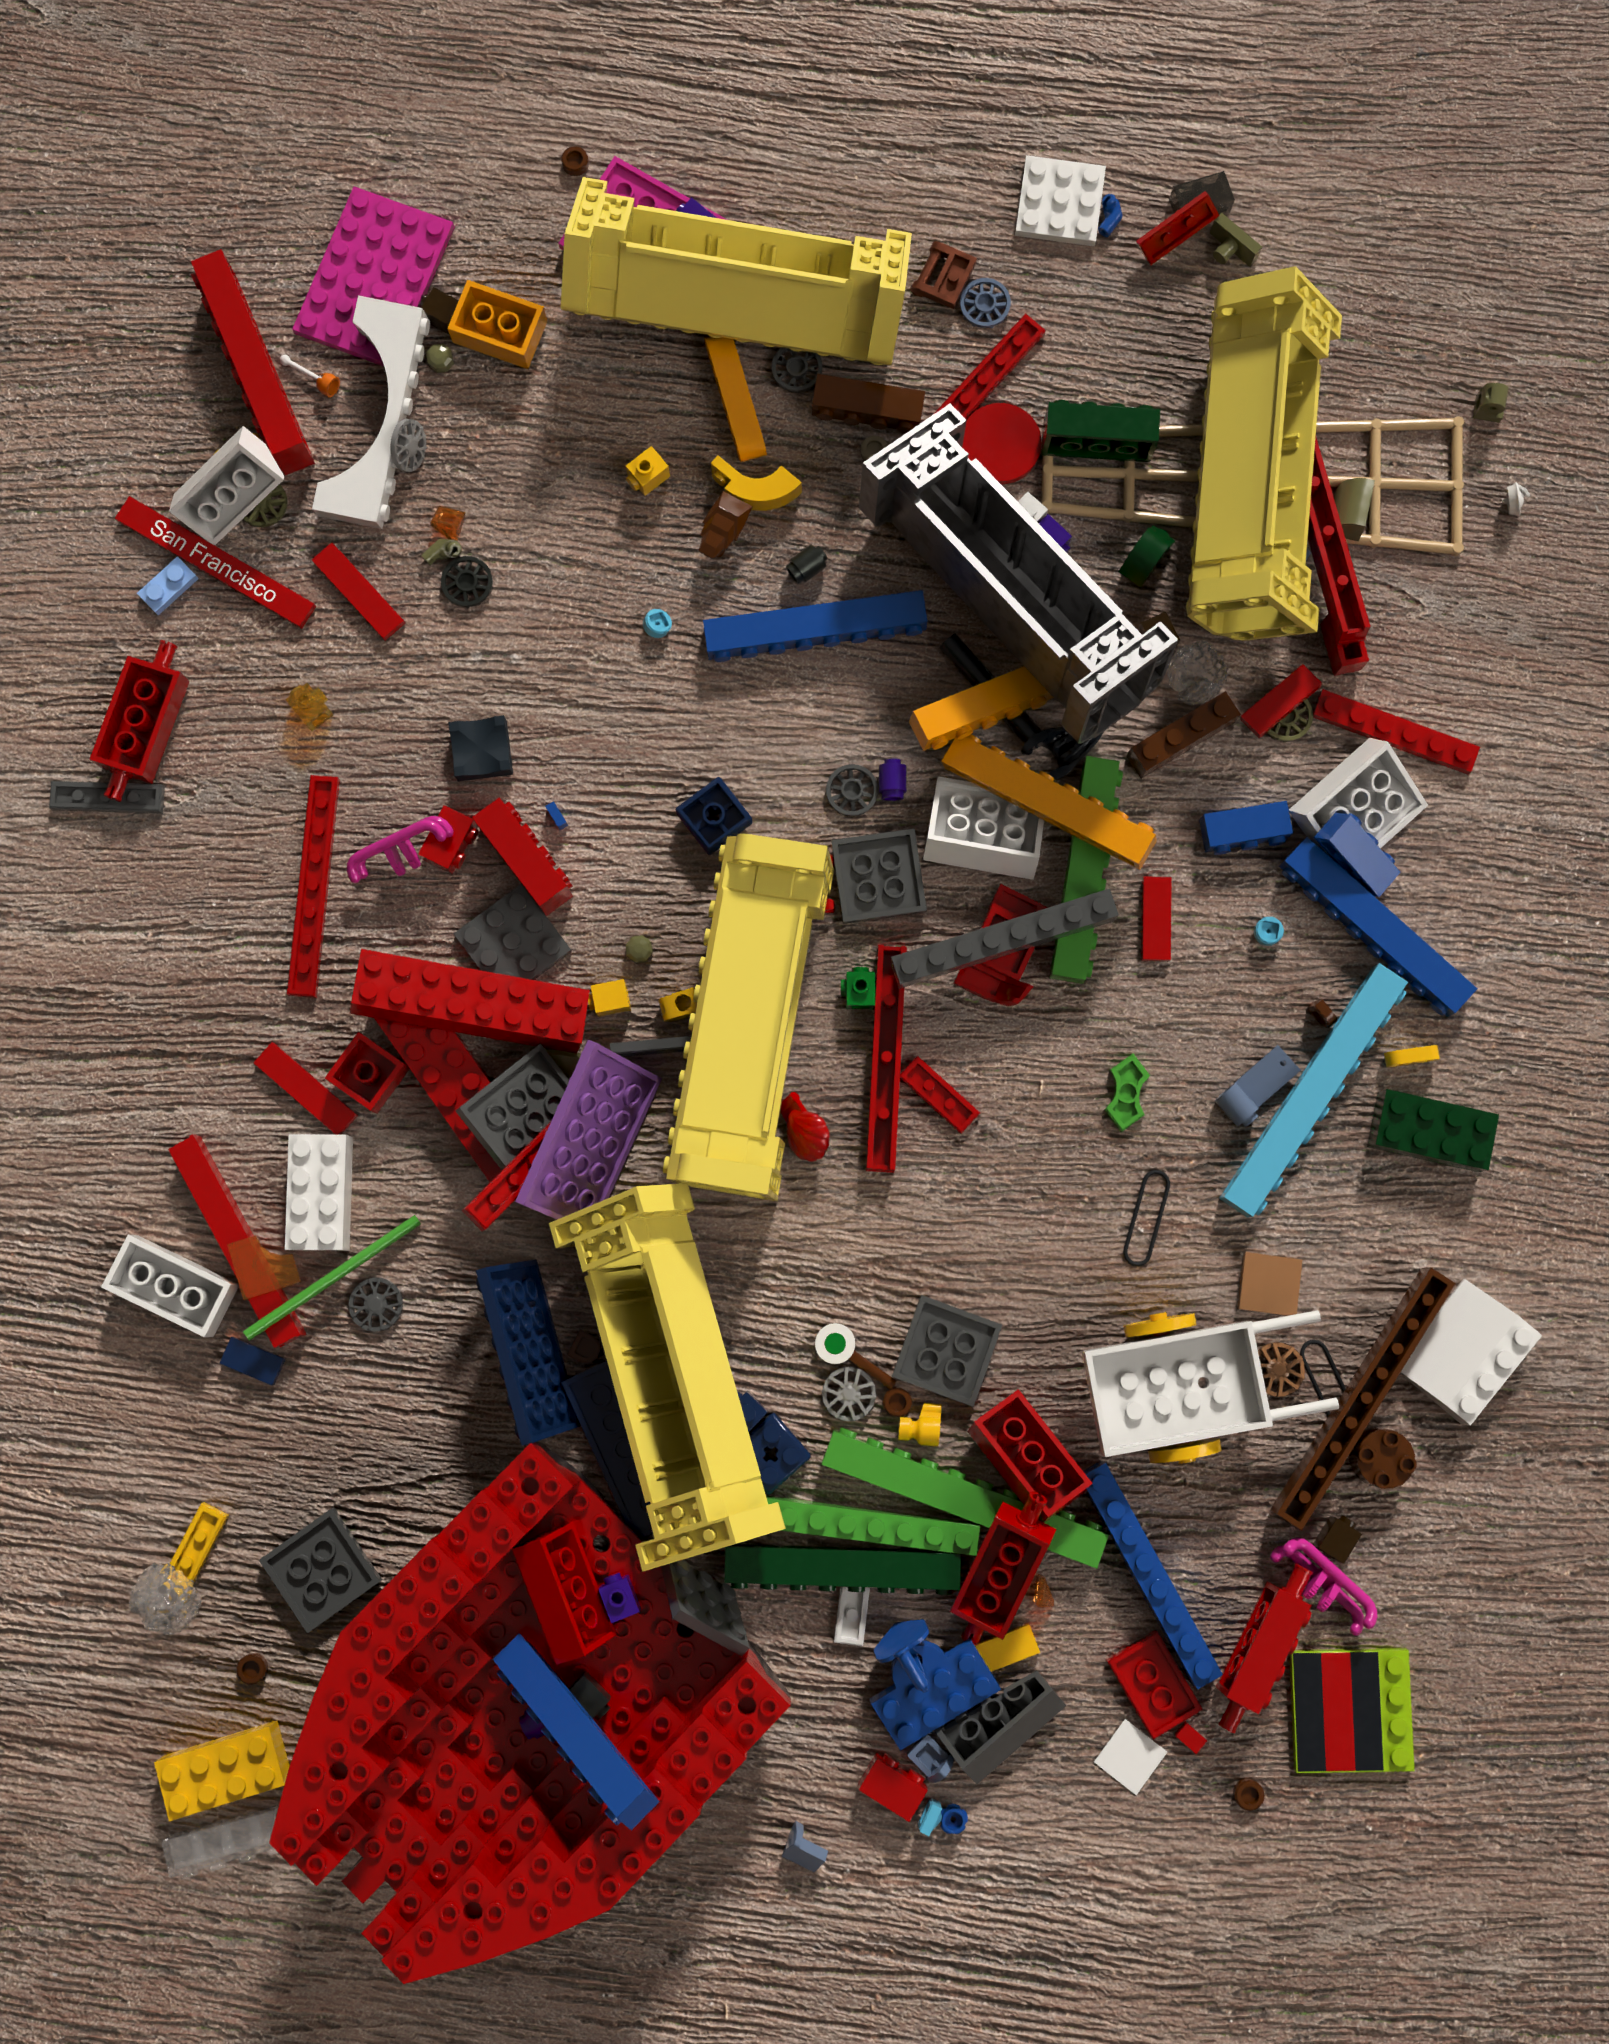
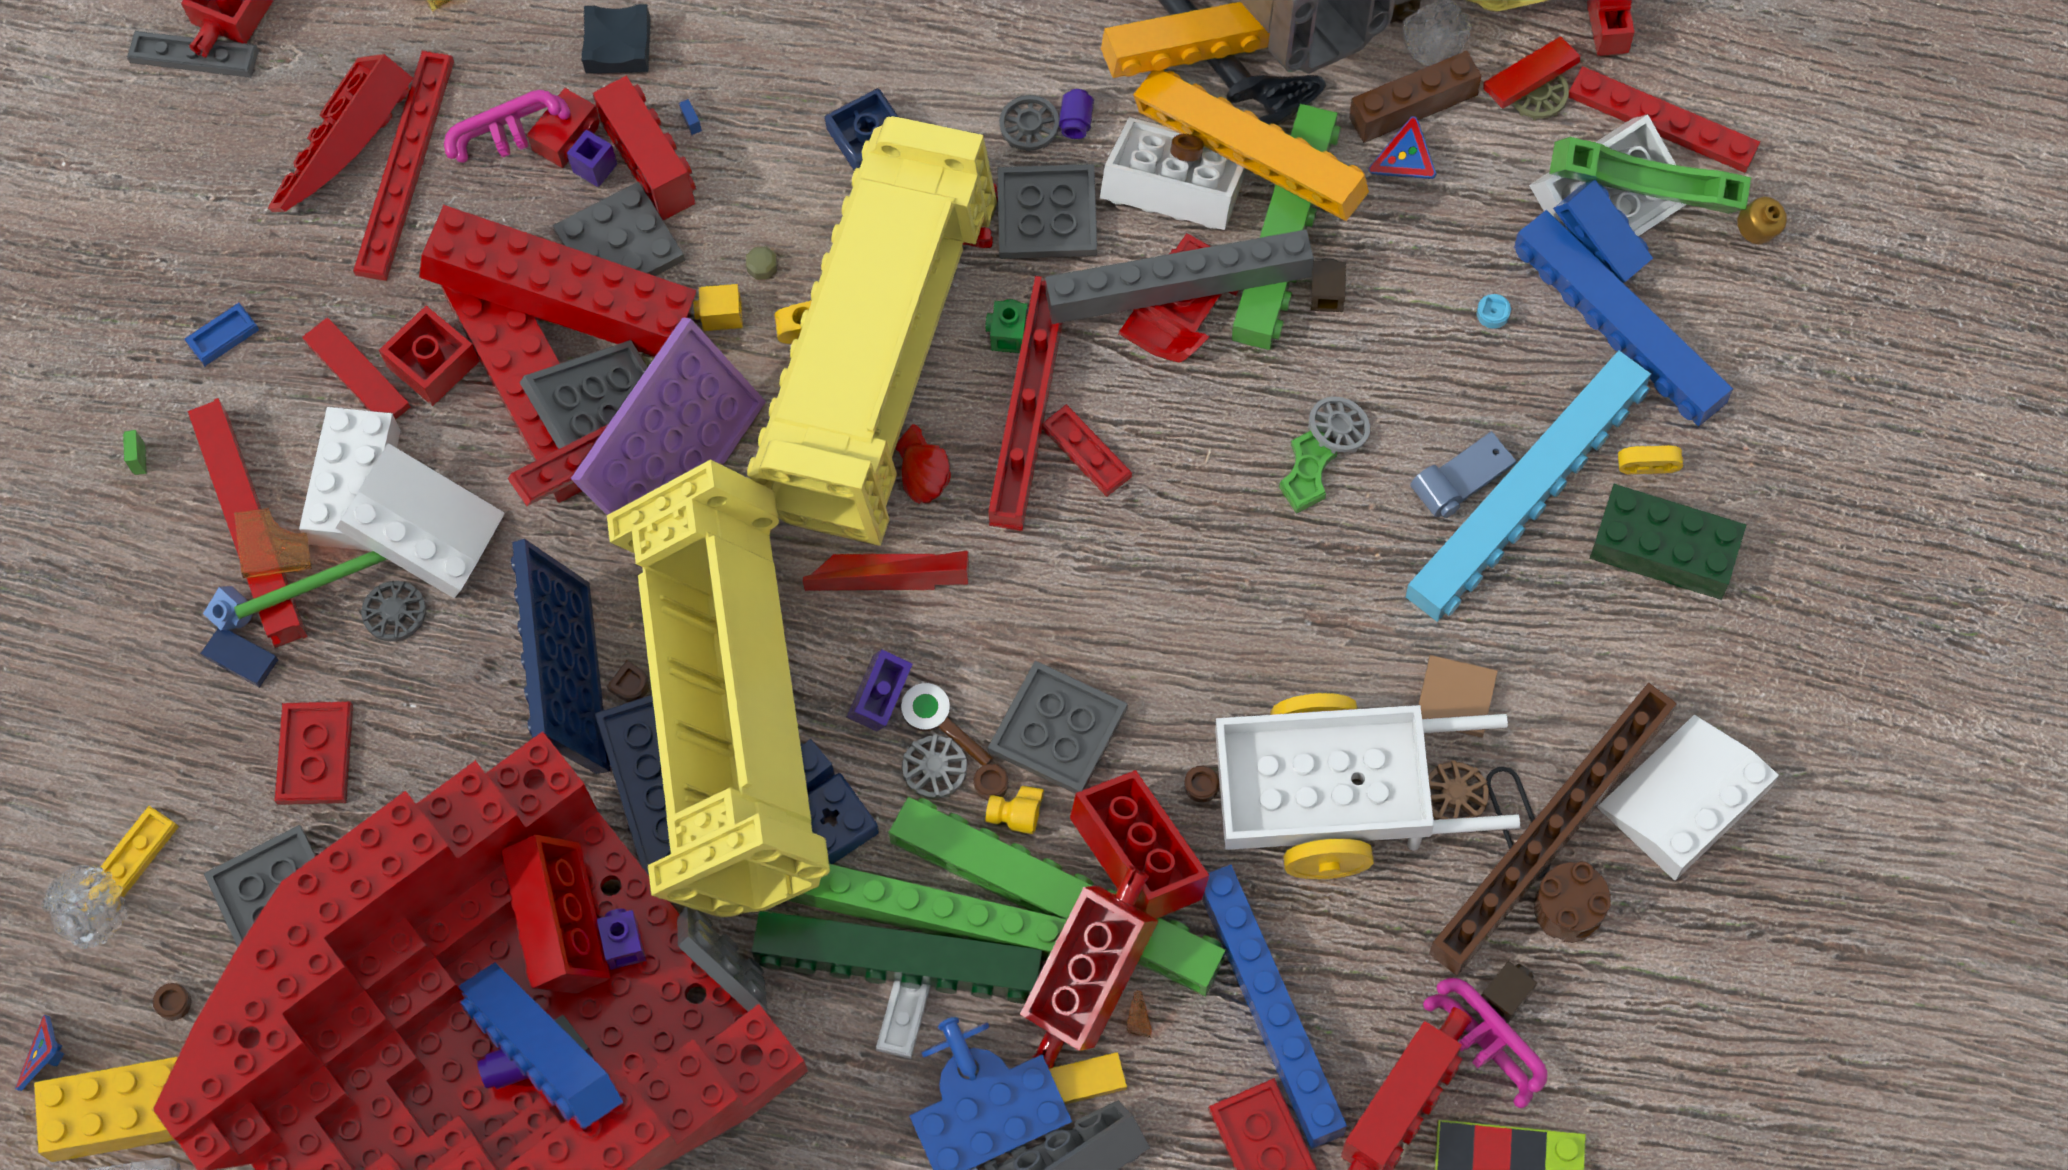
camera: 10 degrees right, 15 degrees down
(128, 1187) = (134, 452): none -> bright green tile
(153, 1727) = (42, 1052): none -> blue piece
(170, 1286) = (160, 557): white brick -> none
(182, 1065) = (221, 334): none -> blue tile
(235, 1321) = (221, 609): none -> medium blue plate
(261, 848) = (350, 120): none -> red wedge
(331, 1439) = (314, 753): none -> red tile
(387, 1229) = (420, 521): none -> white slope
(478, 869) = (592, 158): none -> dark purple brick
(650, 1047) = (758, 361): dark grey tile -> none
(790, 1224) = (889, 572): none -> red wedge
(796, 1338) = (879, 690): none -> dark purple brick
(993, 807) = (1187, 147): none -> reddish brown tile
(1070, 1384) = (1201, 784): none -> reddish brown tile
(1125, 1251) = (1303, 603): black piece -> none
(1129, 923) = (1328, 285): none -> dark brown brick
(1149, 1051) = (1339, 425): none -> light grey wheel
(1156, 918) = (1364, 287): red tile -> none
(1180, 791) = (1405, 155): none -> piece
(1246, 827) = (1478, 198): blue brick -> none
(1322, 1013) = (1548, 403): reddish brown tile -> none
(1362, 799) = (1685, 185): none -> bright green arch
(1488, 825) = (1762, 220): none -> pearl gold head

